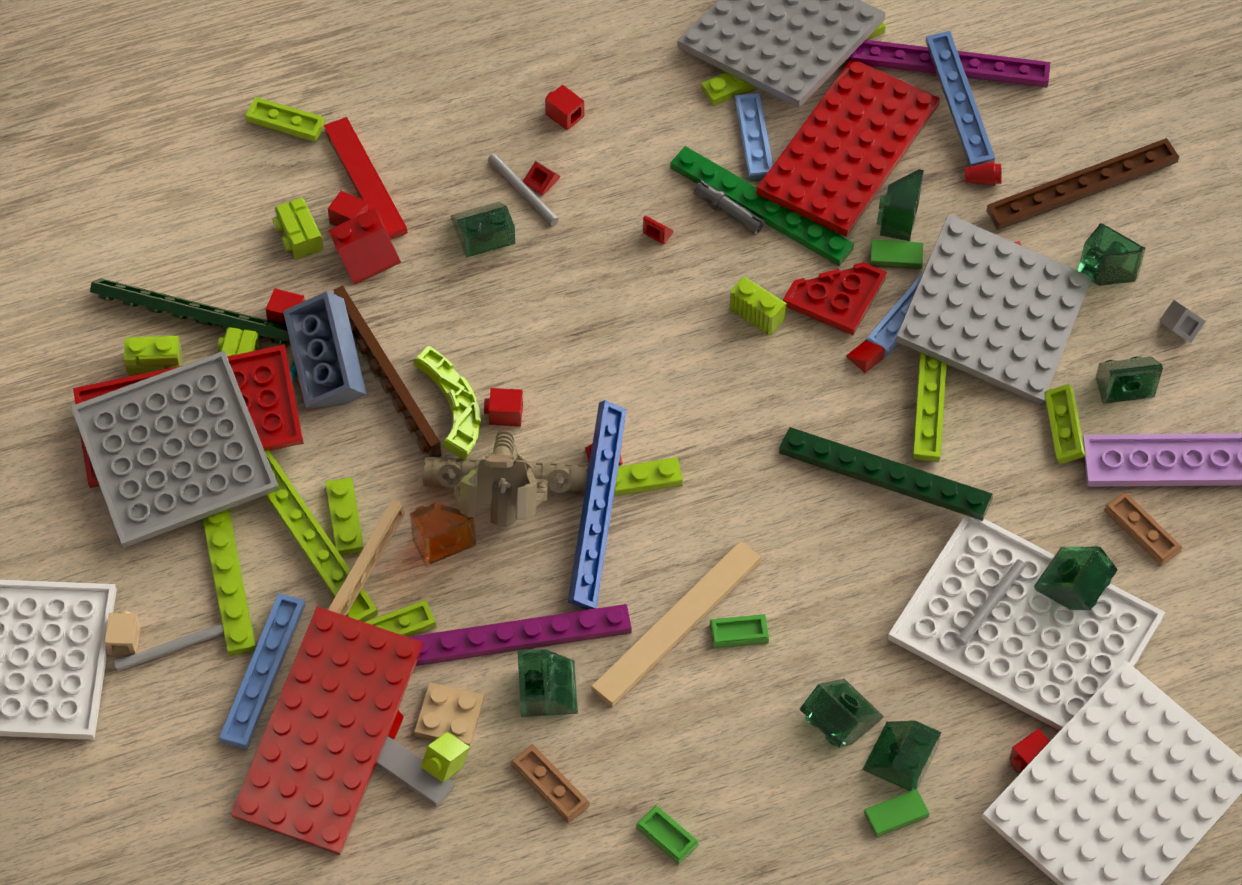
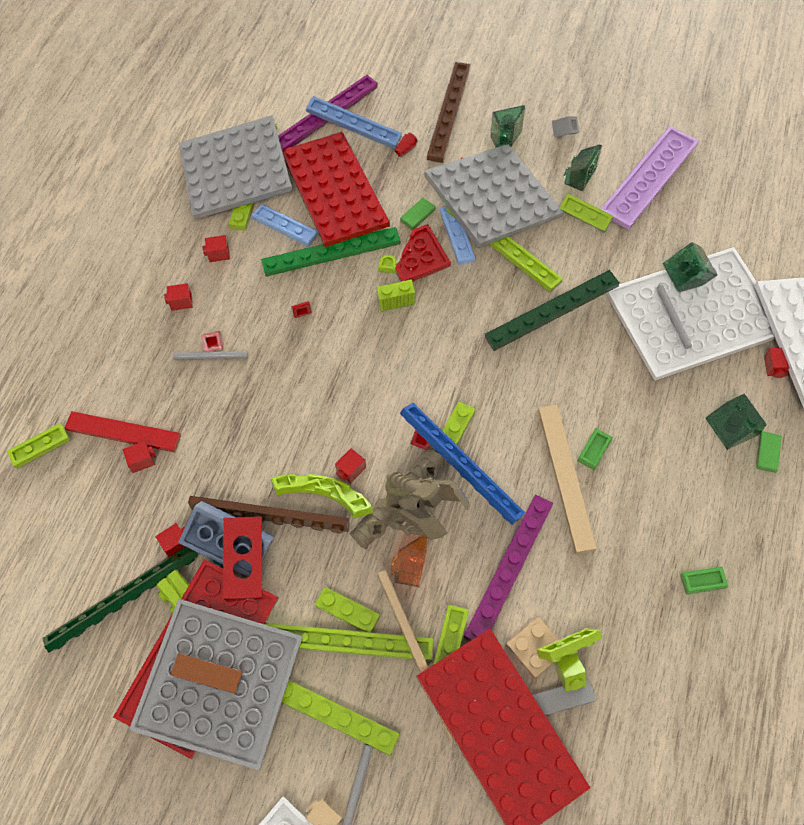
camera: 50 degrees left, 5 degrees up
(151, 354) = (132, 646): lime brick -> none
(173, 428) = (206, 673): none -> dark orange tile
(262, 671) = (422, 743): medium blue plate -> none
(298, 228) = (122, 492): lime brick -> none
(332, 343) = (232, 529): none -> red piece
(364, 246) = (172, 464): red slope -> none
(471, 736) = (569, 645): none -> lime plate
(484, 228) = (218, 392): clear green slope -> none
(546, 683) = (559, 577): clear green slope -> none
(550, 783) = (626, 622): medium nougat tile -> none
(658, 95) = (216, 248): none -> red brick
(721, 202) = (317, 266): dark grey pin -> none
(796, 269) = (387, 264): none -> lime tile
(840, 712) = (689, 435): clear green slope -> none
(866, 355) = (468, 268): red slope -> none
(900, 206) = (399, 189): clear green slope -> none
(1143, 528) = (672, 224): medium nougat tile -> none

